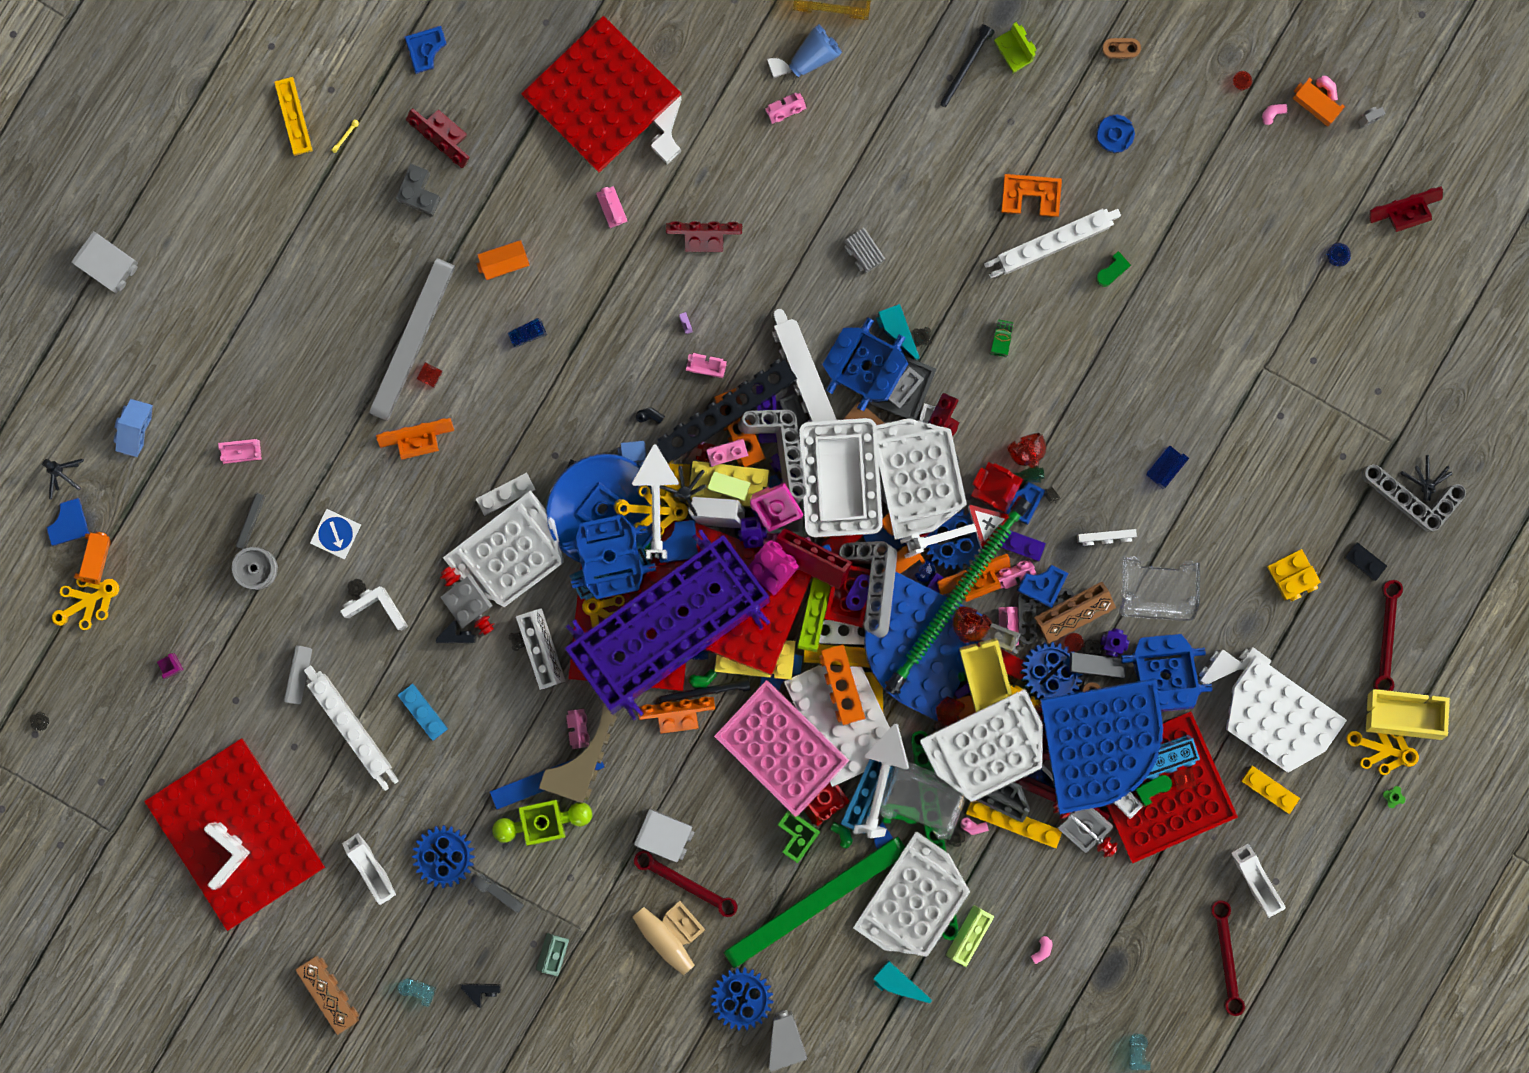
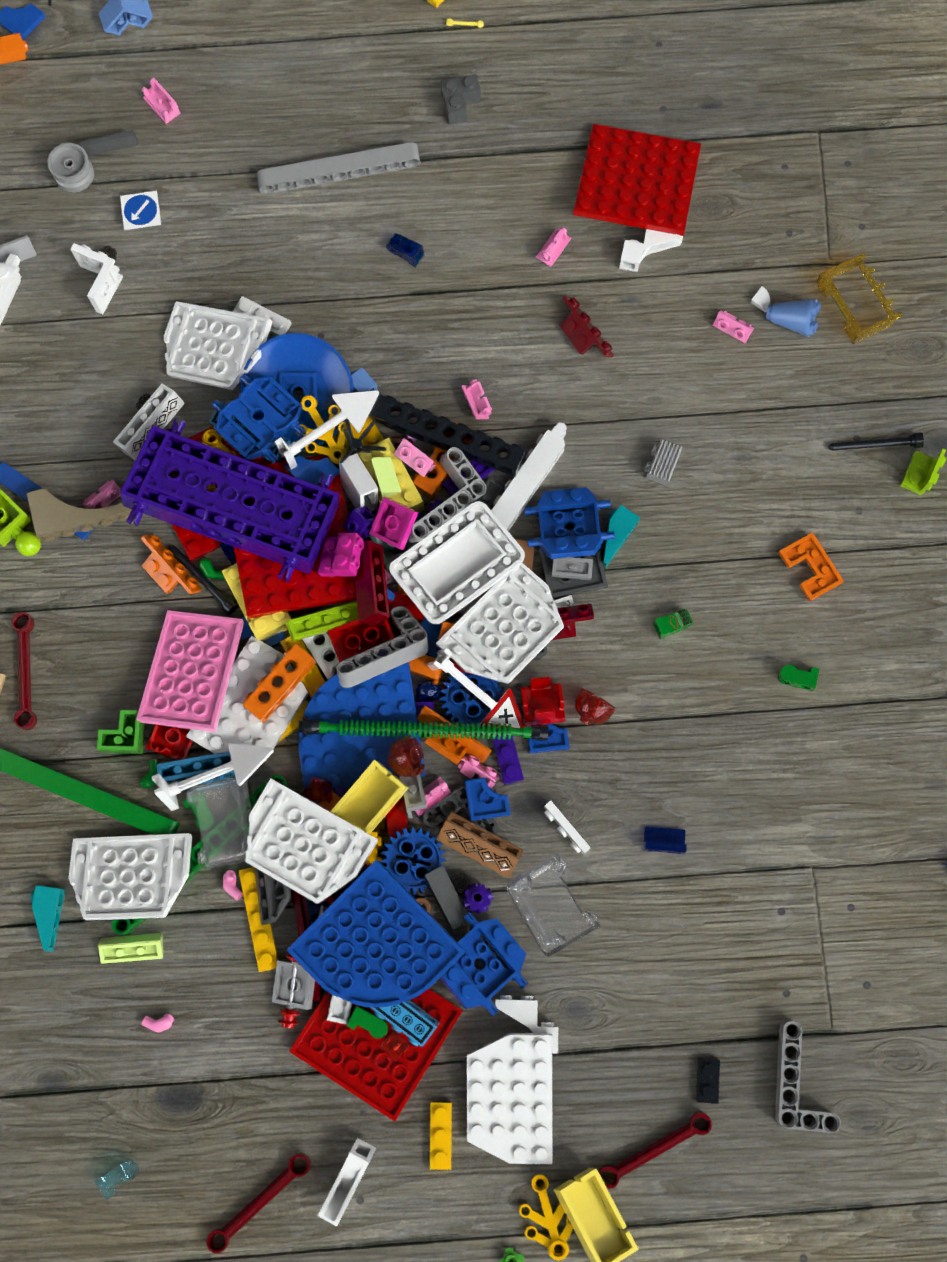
camera: 60 degrees right, 10 degrees down
(416, 439) = (260, 221): orange bracket -> none
(422, 712) = (37, 369): dark azure plate -> none
(424, 47) = (576, 34): blue tile -> none
(429, 375) = (319, 200): clear red tile -> none
(441, 133) = (518, 88): dark red bracket -> none
(450, 635) = (117, 348): black slope -> none
(466, 601) = (151, 342): light grey plate -> none
(502, 260) = (450, 192): orange brick -> none
(649, 413) = (405, 383): black arm -> none
(664, 835) = (52, 622): slope -> none
(685, 323) = (504, 358): lavender tile -> none
(859, 592) = (368, 641): dark purple plate -> none
(880, 841) = (174, 815): blue tile -> none
(926, 333) = (626, 551): clear smoke plate -> none
(960, 838) = (212, 880): clear smoke plate -> none
(1032, 474) = (575, 727): clear green cone -> none
(1052, 495) = (569, 756): clear smoke plate -> none
(1053, 242) = (786, 610): white hinge -> none
(1074, 642) = (454, 863): clear red plate -> none
(1115, 133) = (915, 602): blue tile -> none
(1294, 575) = (649, 1022): yellow plate -> none
(1428, 485) = (817, 1090): black plant -> none

